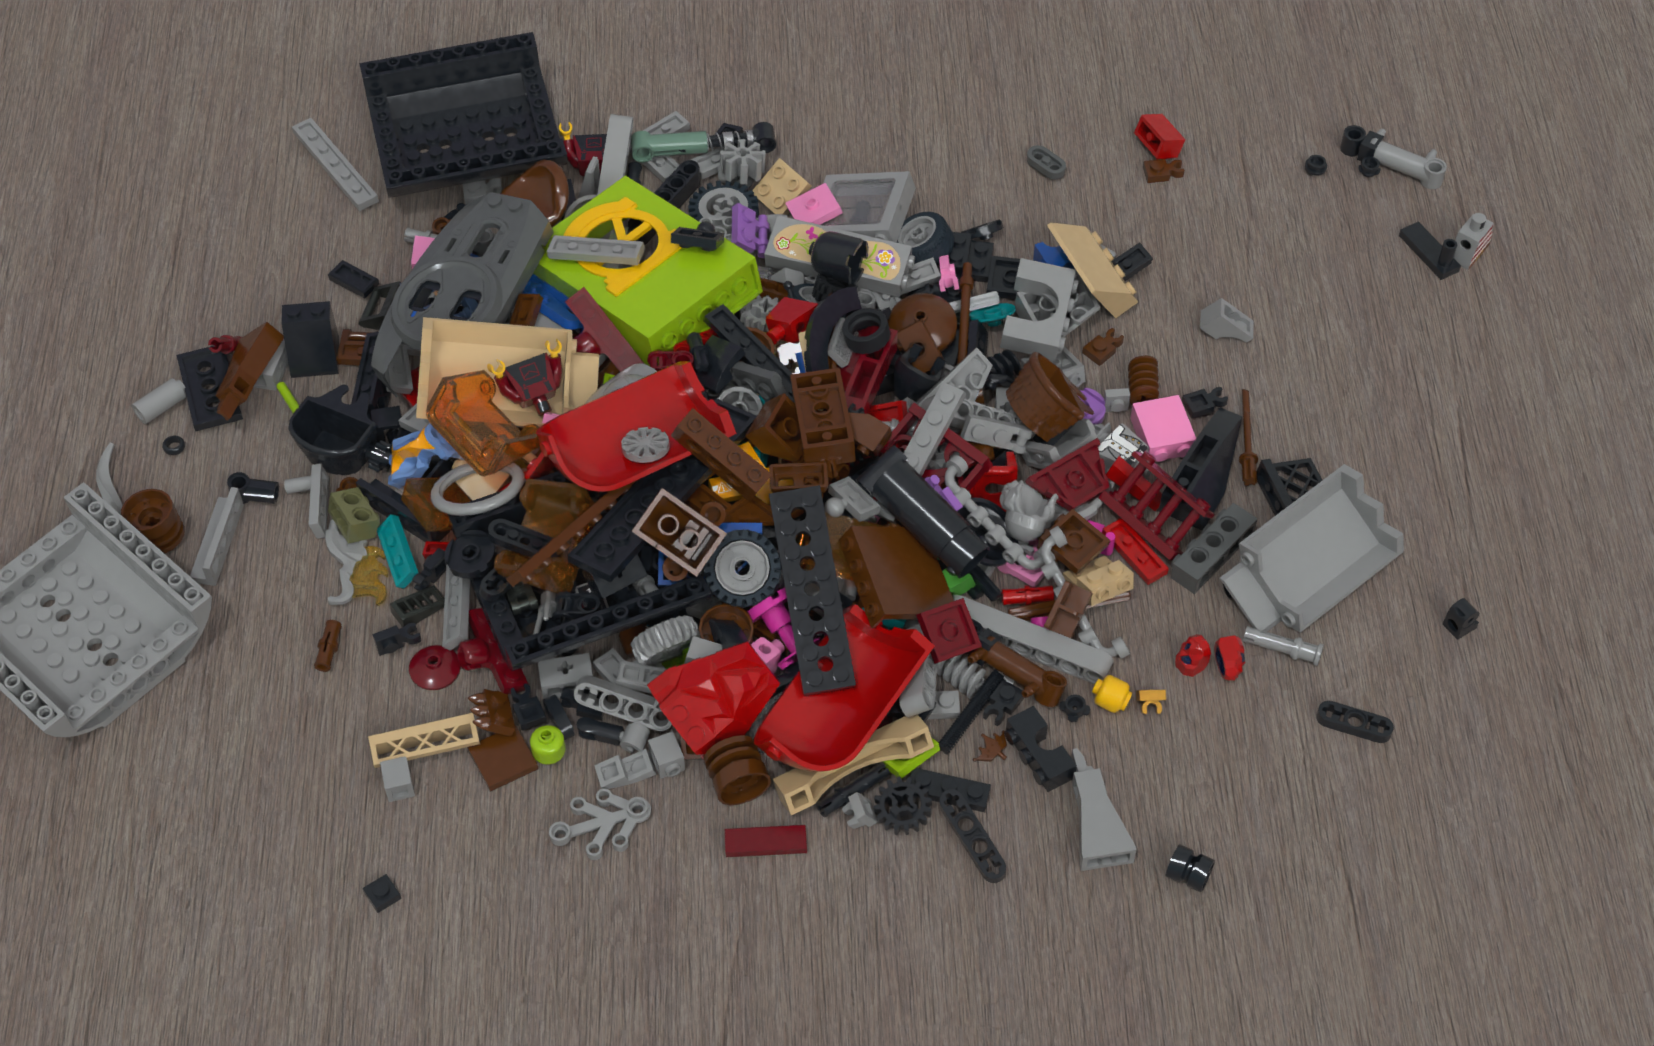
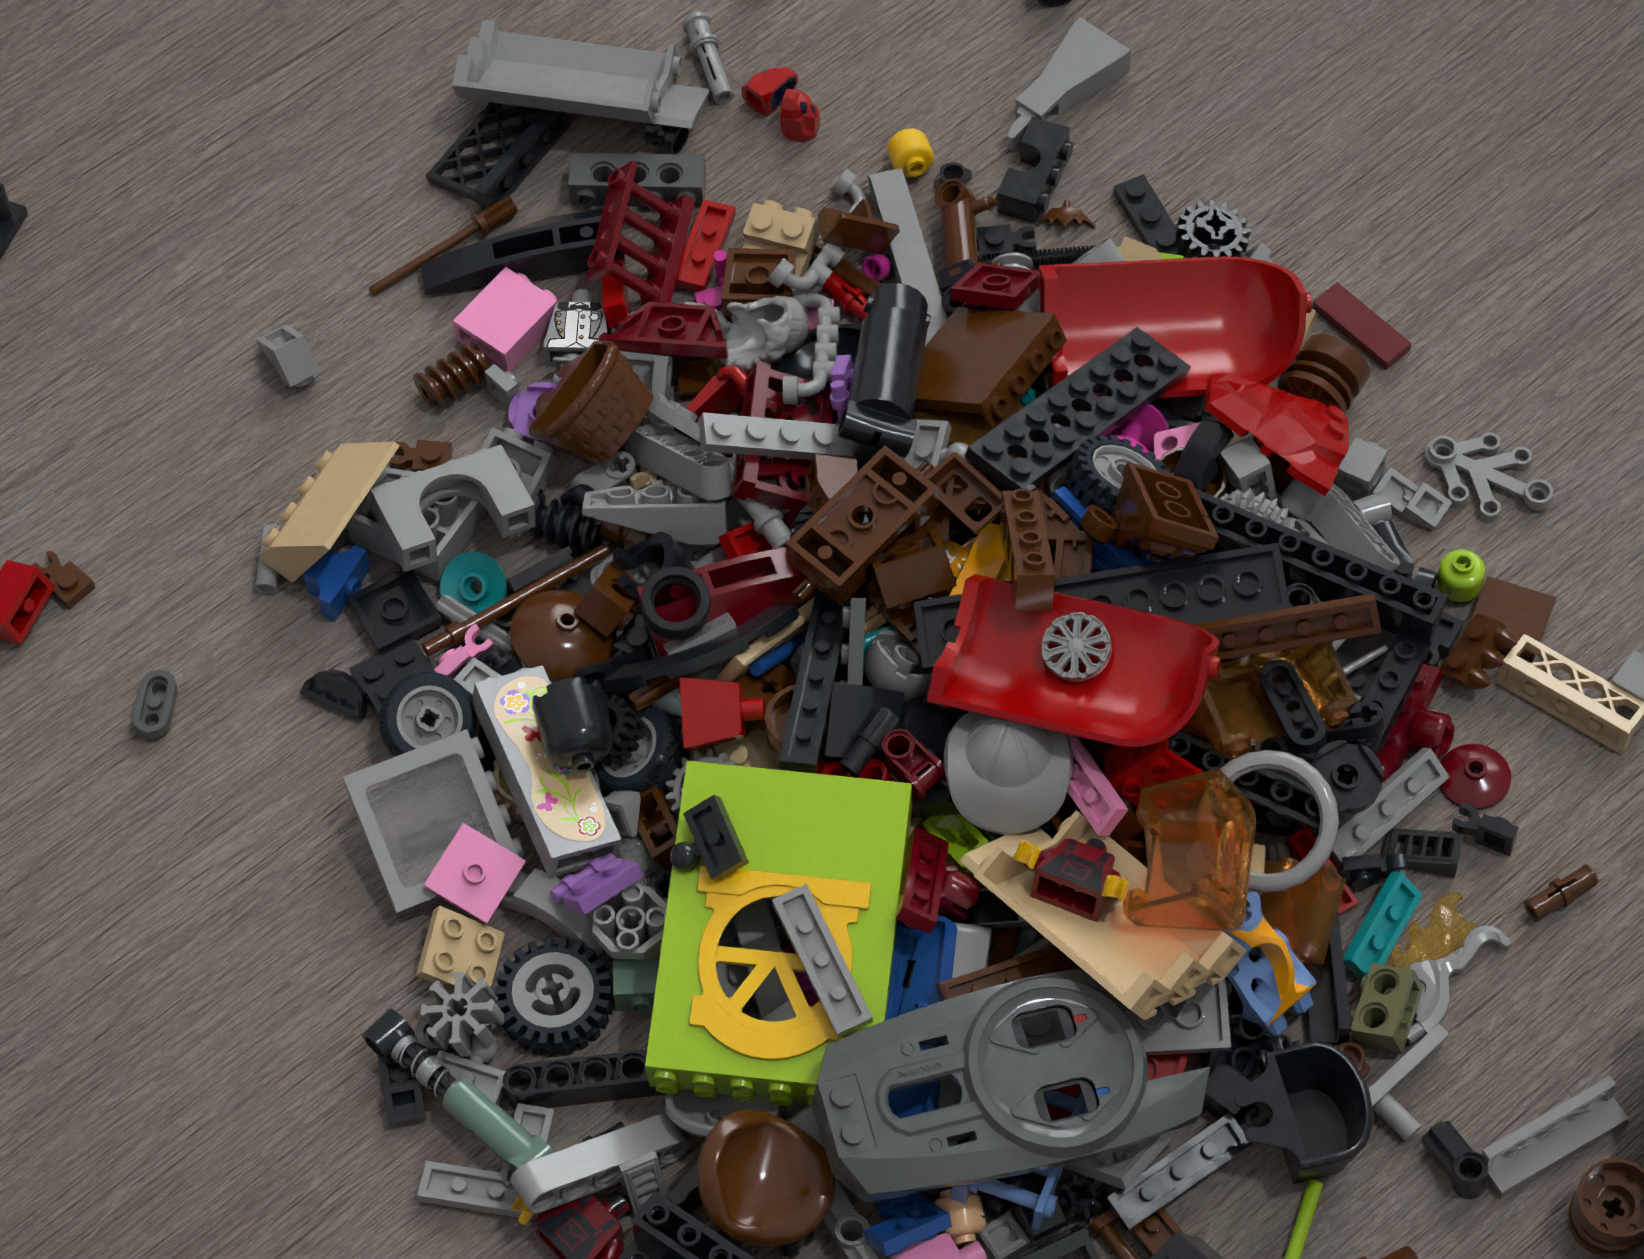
camera: 125 degrees left, 5 degrees up
(976, 833) = (1186, 160): black beam -> none
(1133, 260) = (265, 497): black plate -> none
(1150, 696) = (881, 121): pearl gold tile -> none
(1201, 403) = (432, 312): black plate -> none

